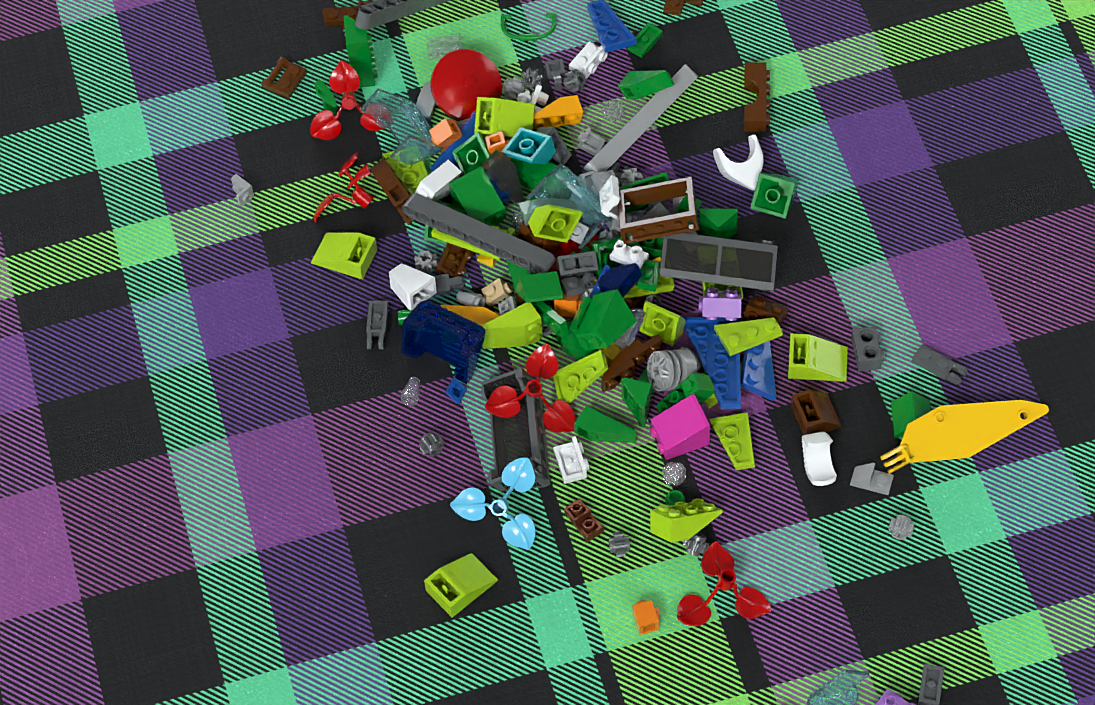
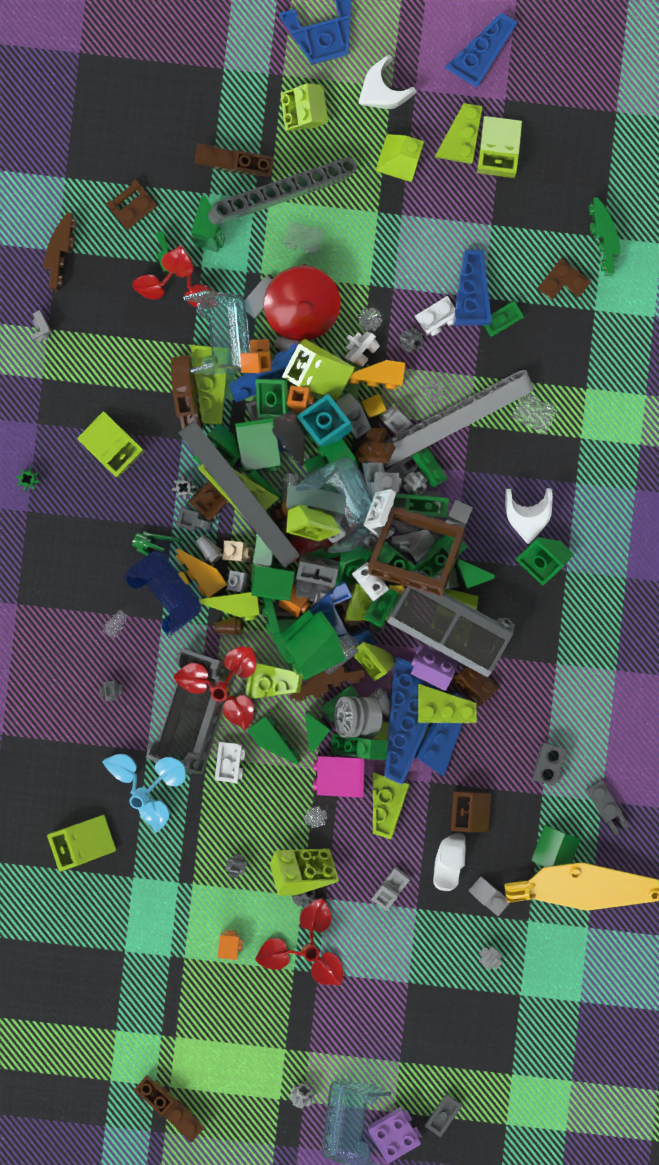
camera: 15 degrees right, 30 degrees up
(234, 128) = (59, 244): none -> reddish brown slope
(279, 307) = (33, 480): none -> green gear
(359, 195) = (151, 382): red plant -> none
(377, 322) = (112, 534): dark grey hinge -> none
(411, 285) = (157, 515): white slope -> none
(437, 183) = (225, 416): white slope -> none
(456, 390) = (156, 641): blue slope -> none
(512, 88) = (347, 323): light grey gear -> none
(518, 352) = (229, 626): none -> reddish brown cone
(528, 37) = (390, 261): green piece -> none
(555, 71) = (398, 317): dark grey plate -> none
(570, 140) = (374, 406): none -> yellow slope
(583, 160) = (373, 449): none -> reddish brown plate
(583, 520) = (216, 824): copper slope -> none
(620, 278) = (345, 610): clear blue slope -> none
(632, 161) = (429, 467): none -> green plate
(644, 83) = (474, 380): green slope -> none
(673, 497) = (306, 840): green plate -> none
(708, 95) = (534, 413): none -> clear bracket
(755, 113) = (589, 415): reddish brown arch -> none
(776, 509) = (390, 888): none -> light grey slope
(816, 359) = (498, 756): lime slope -> none

